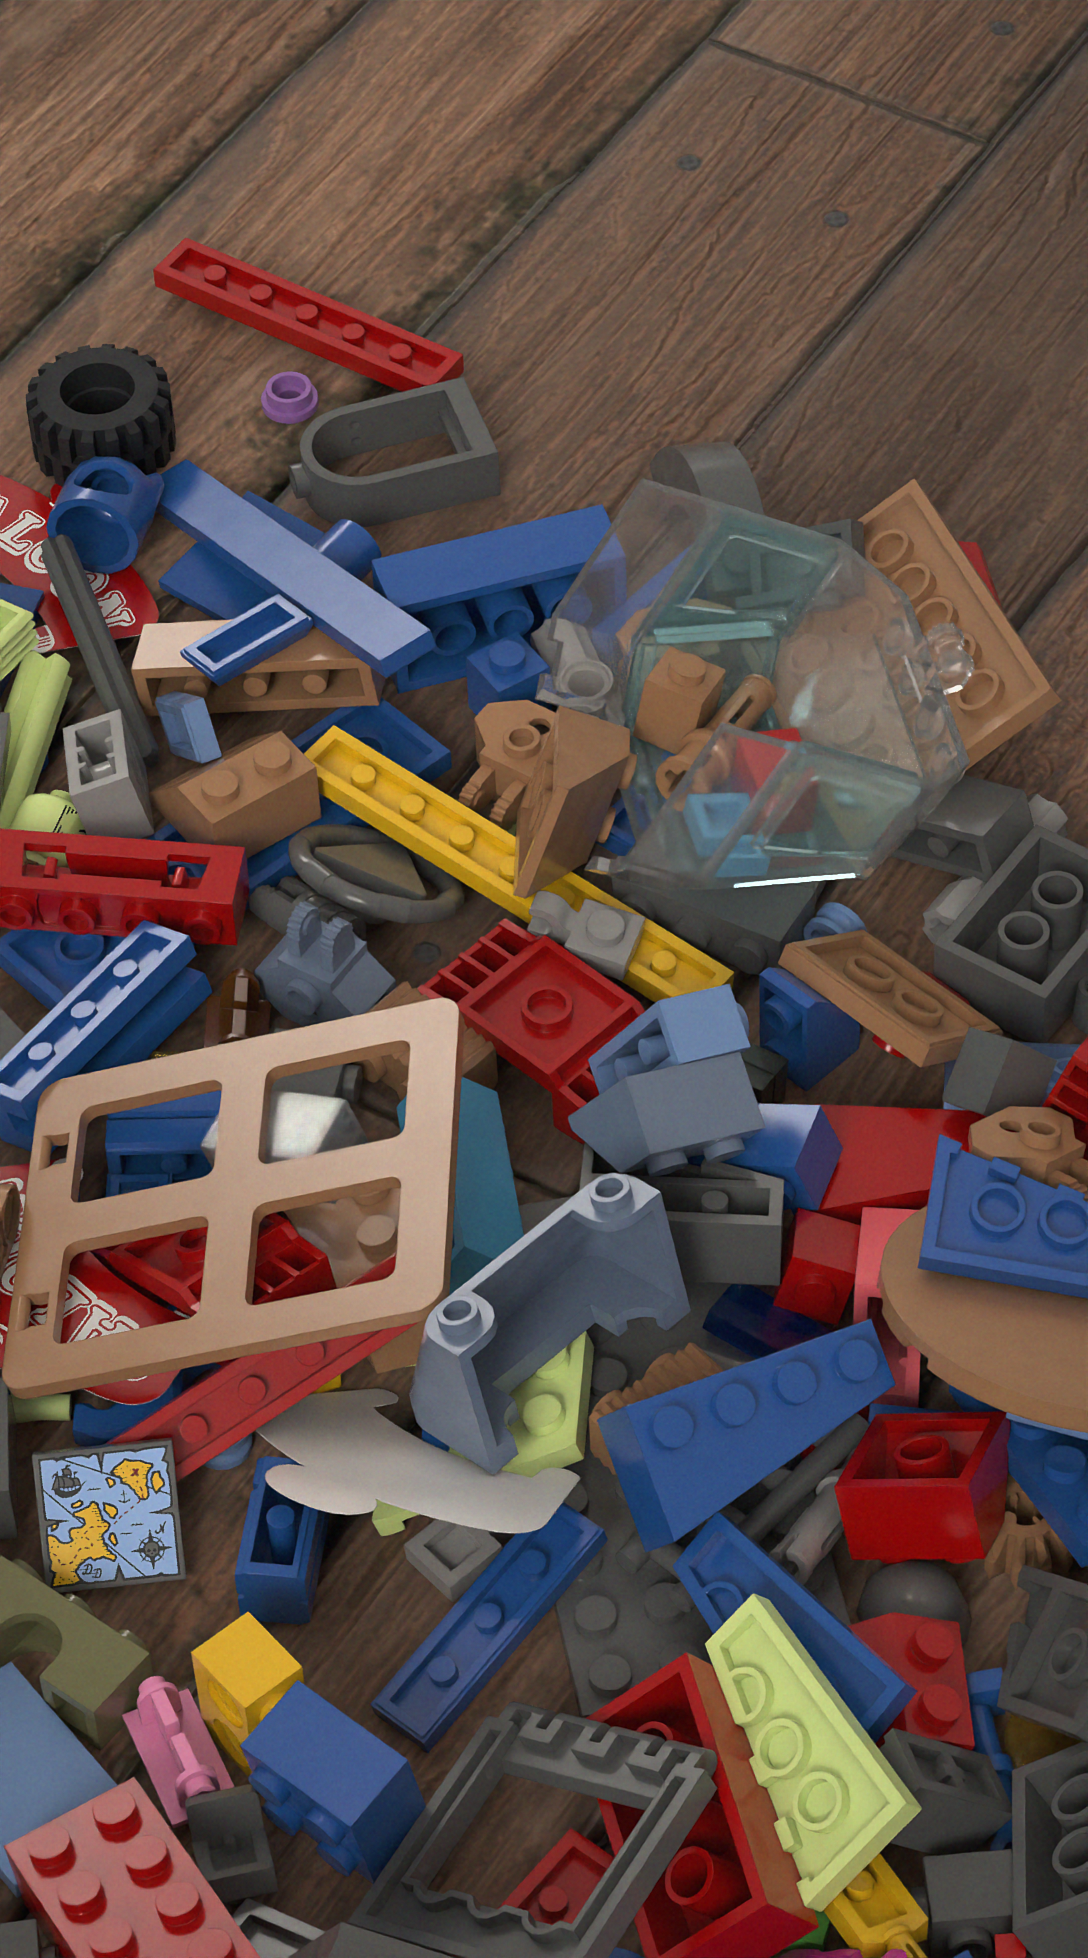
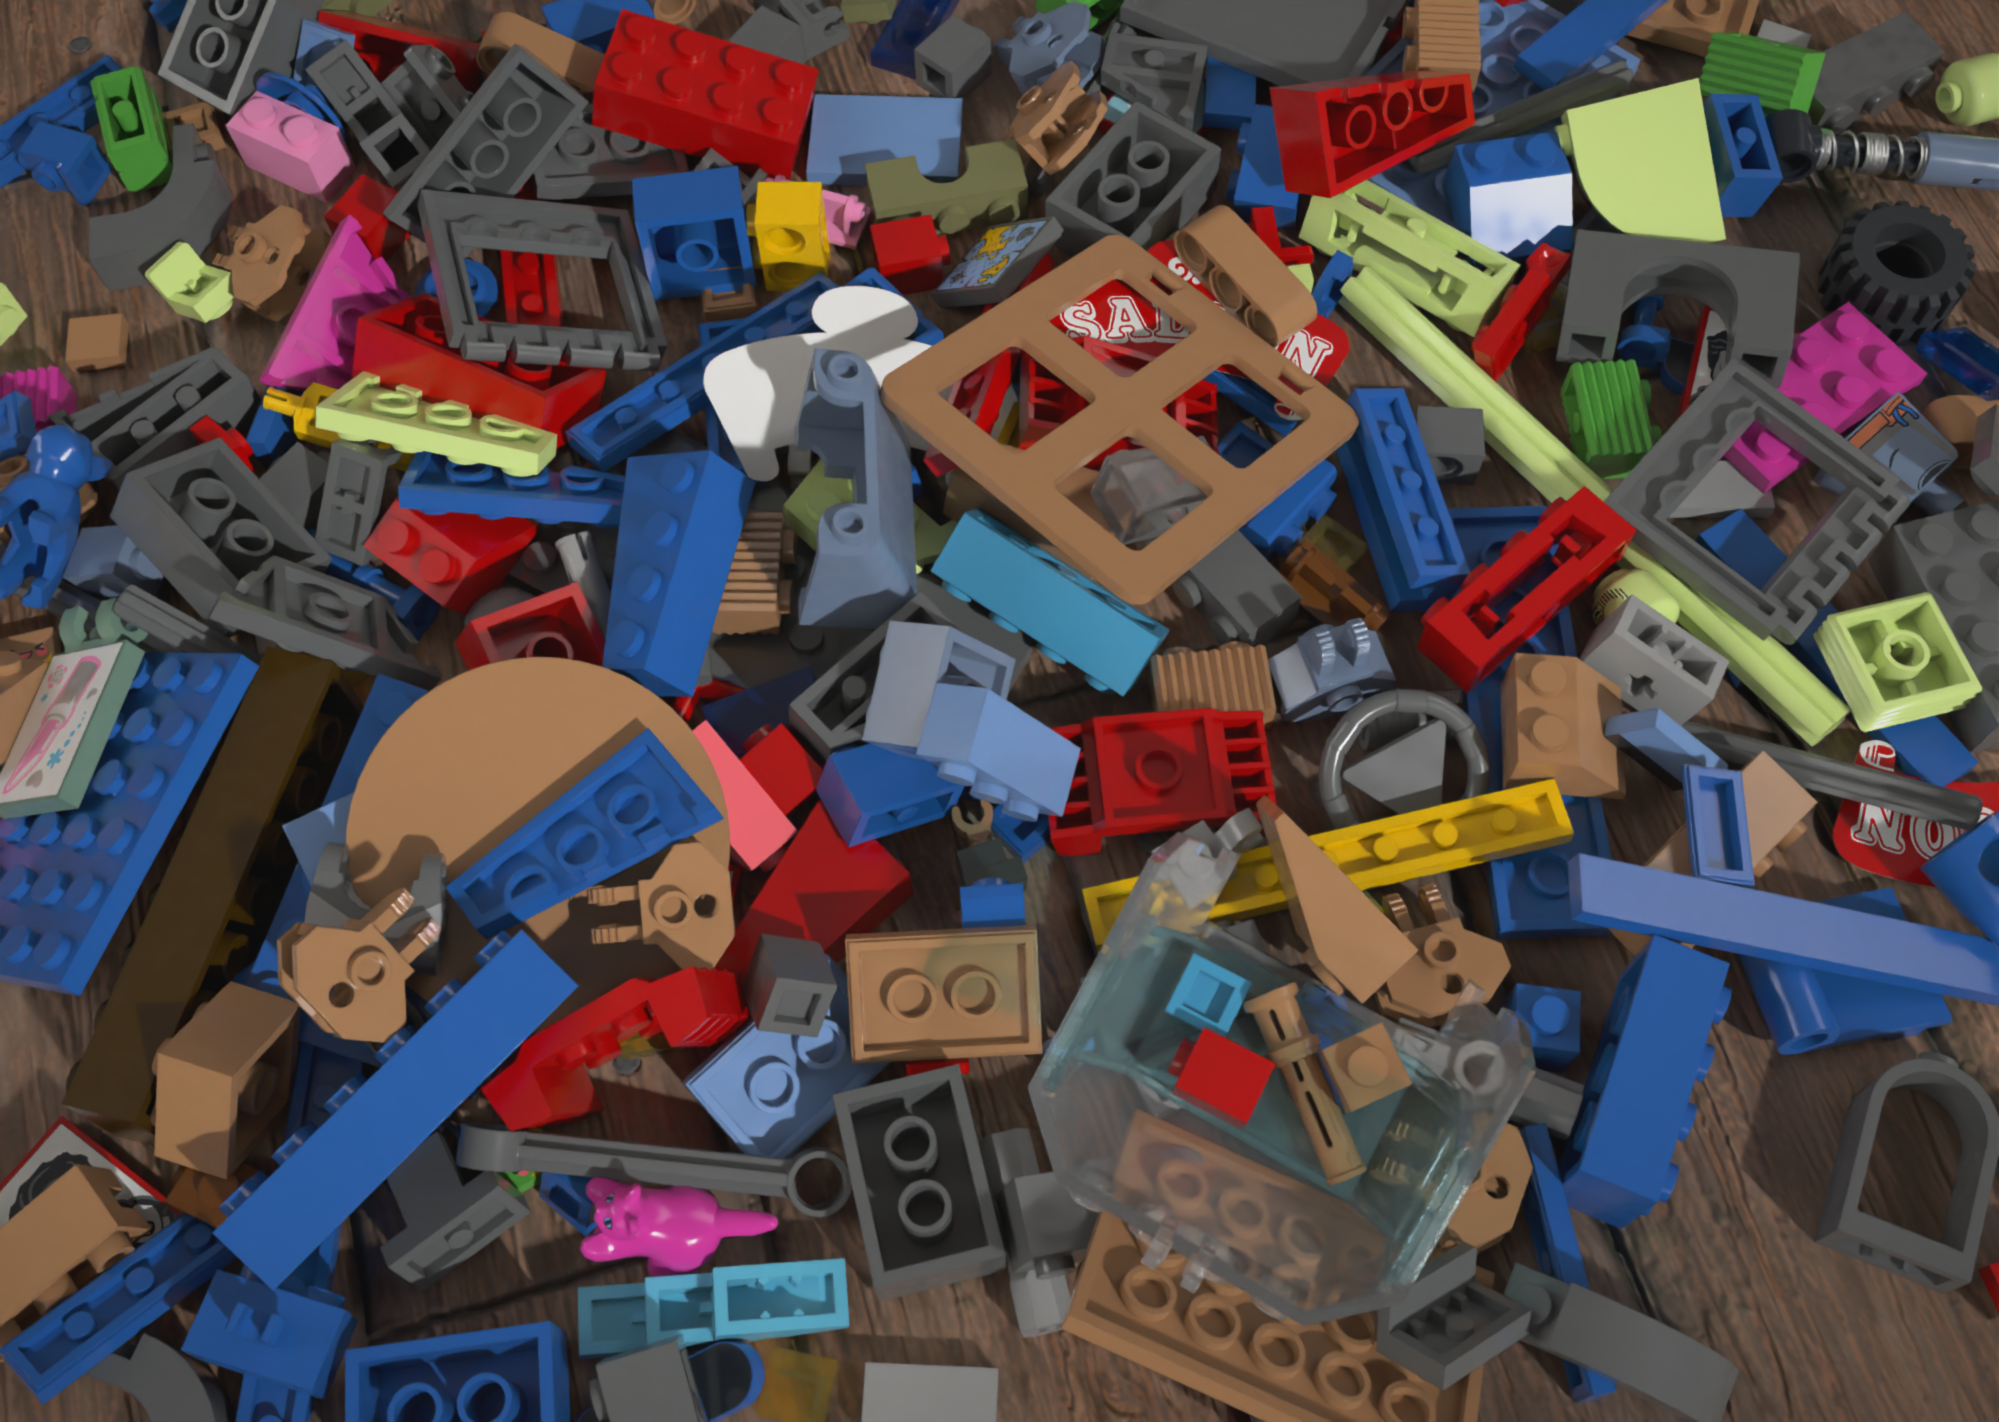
camera: 130 degrees right, 15 degrees up
(166, 1613) = (910, 253): none -> red brick
(480, 1643) = (679, 389): none -> blue tile

